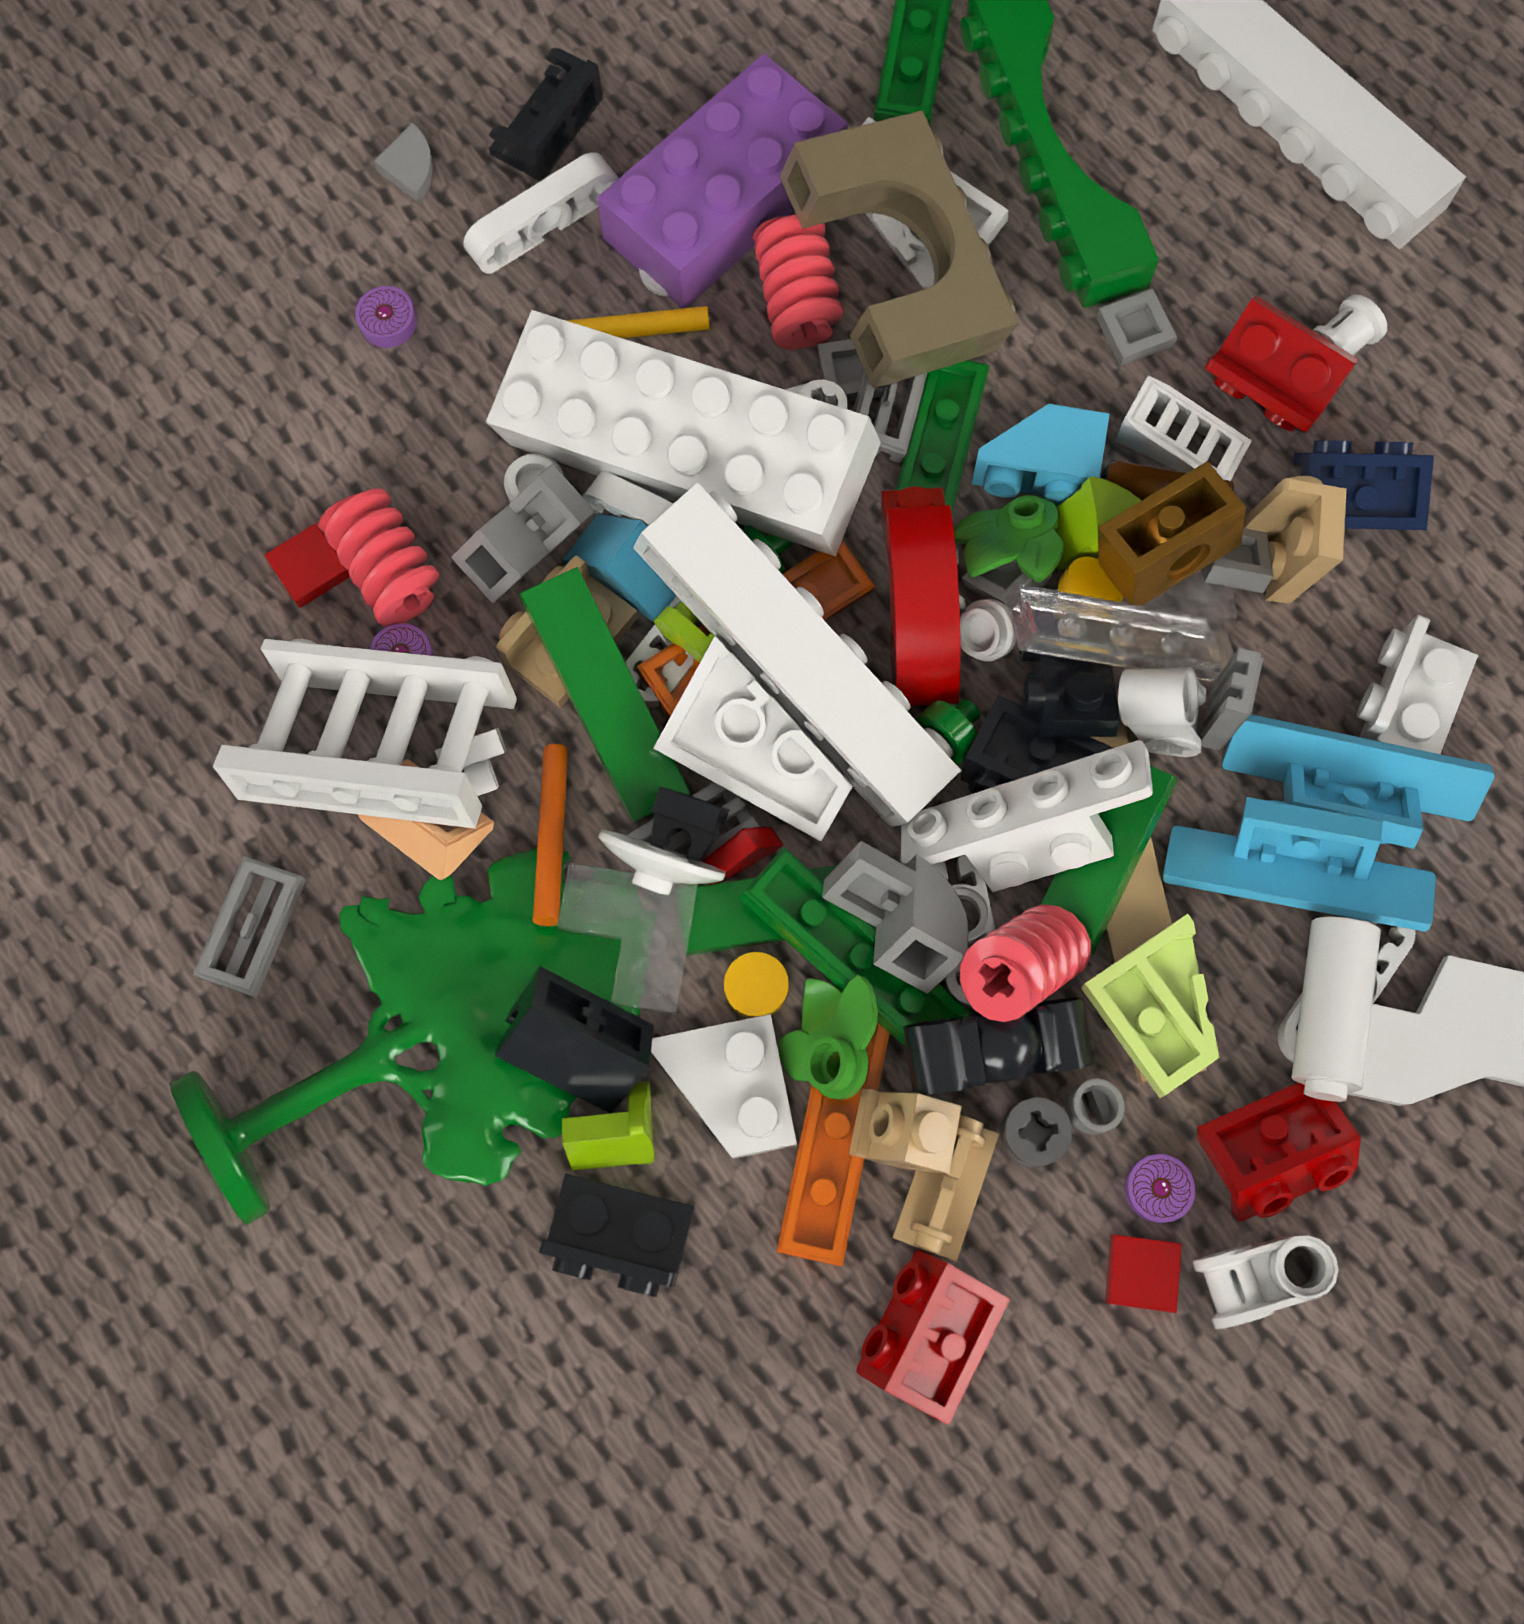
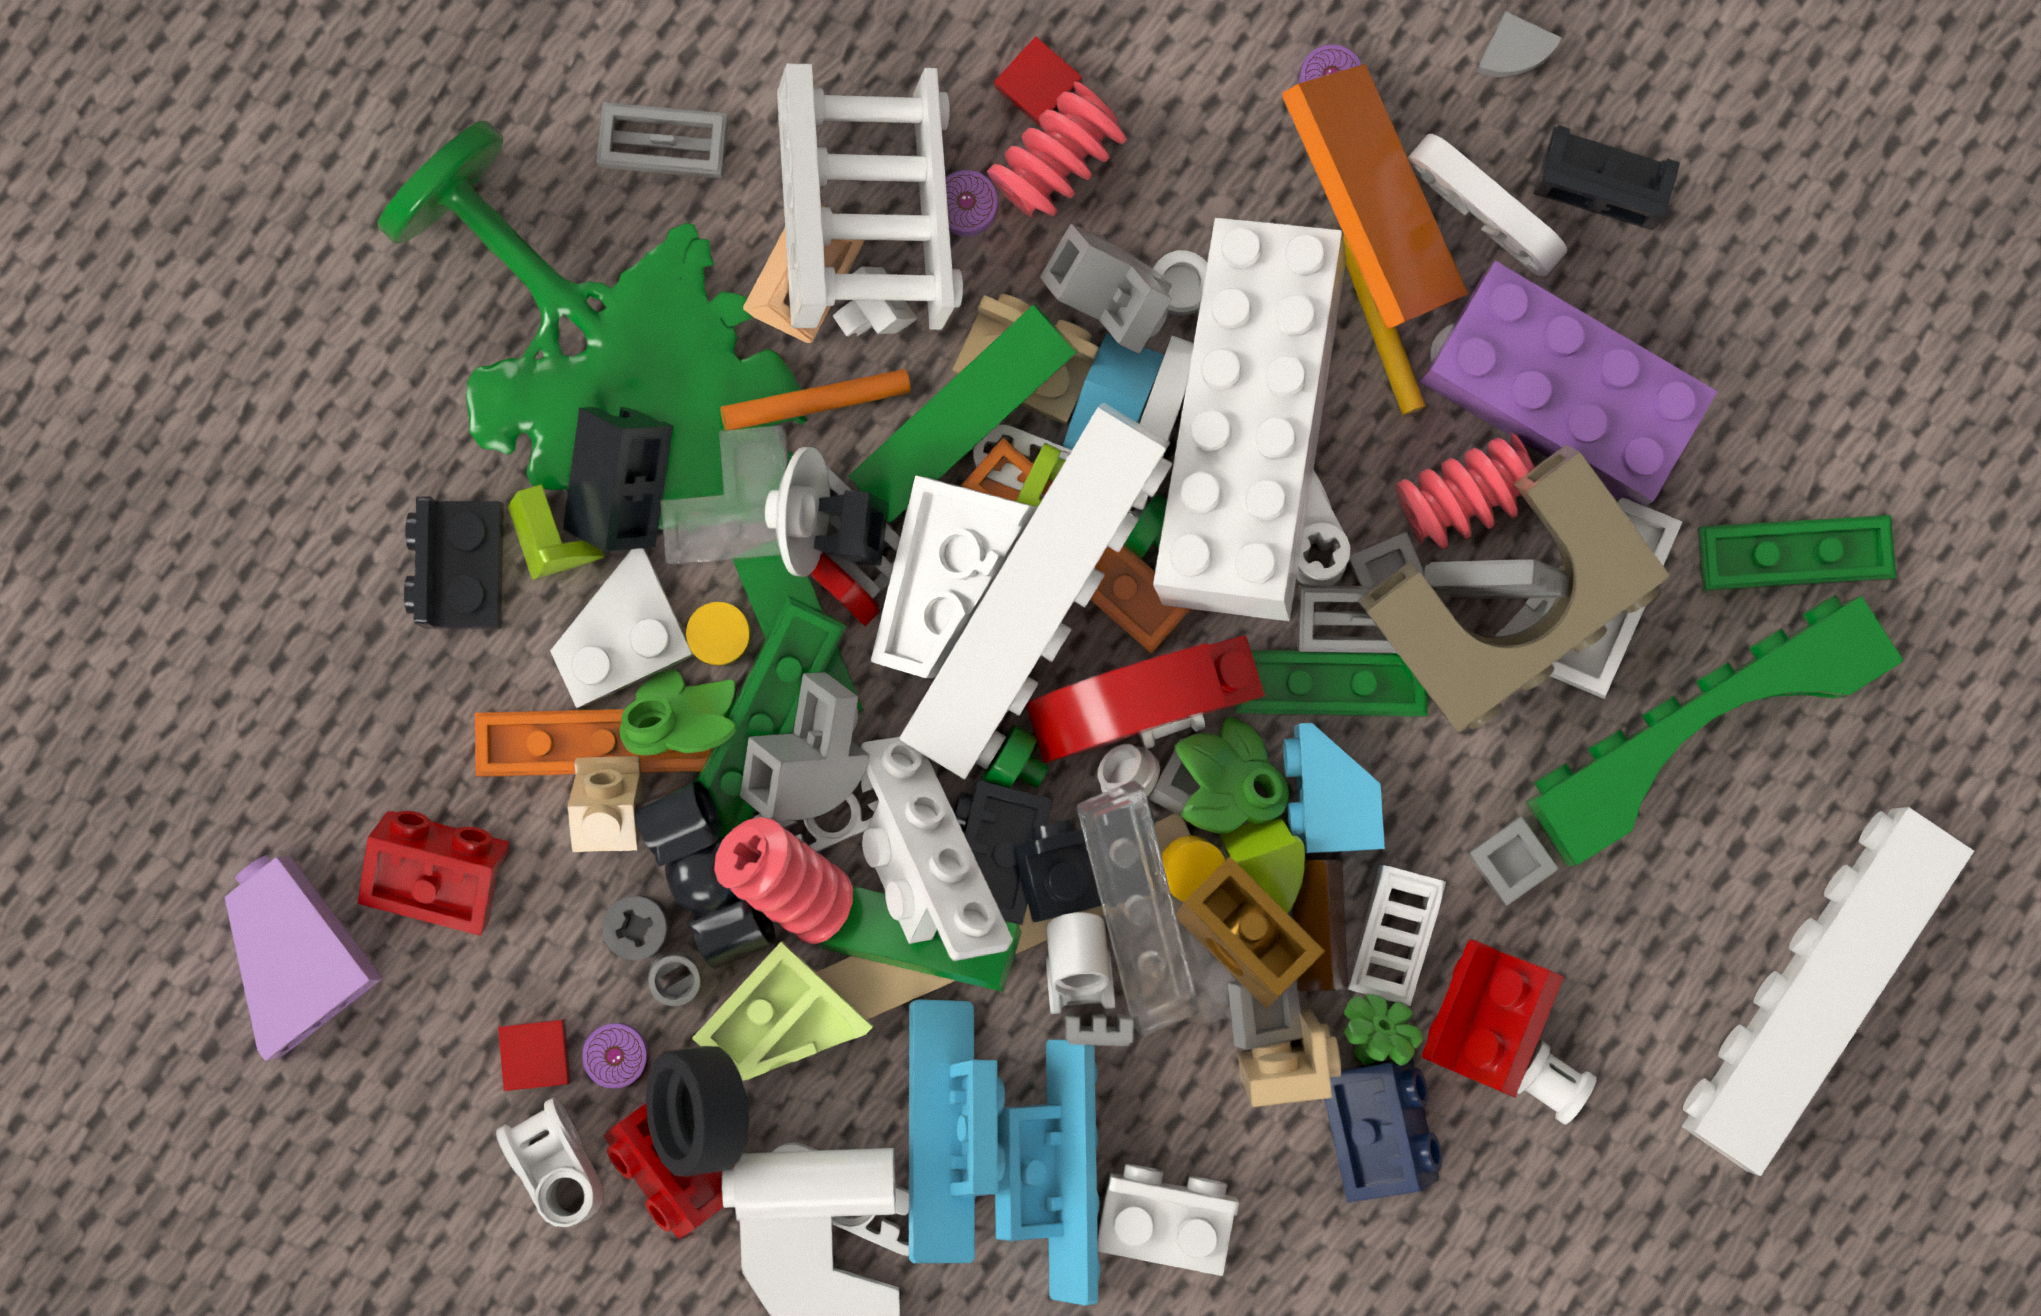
camera: 75 degrees right, 10 degrees up
(506, 287) = (1374, 194): none -> orange tile
(886, 255) = (1497, 579): none -> light grey tile
(943, 1203) = (543, 855): tan hinge -> none
(990, 1510) = (291, 955): none -> lavender slope
(1240, 1066) = (697, 1110): none -> black tyre
(1273, 460) = (1380, 1030): none -> bright green plant

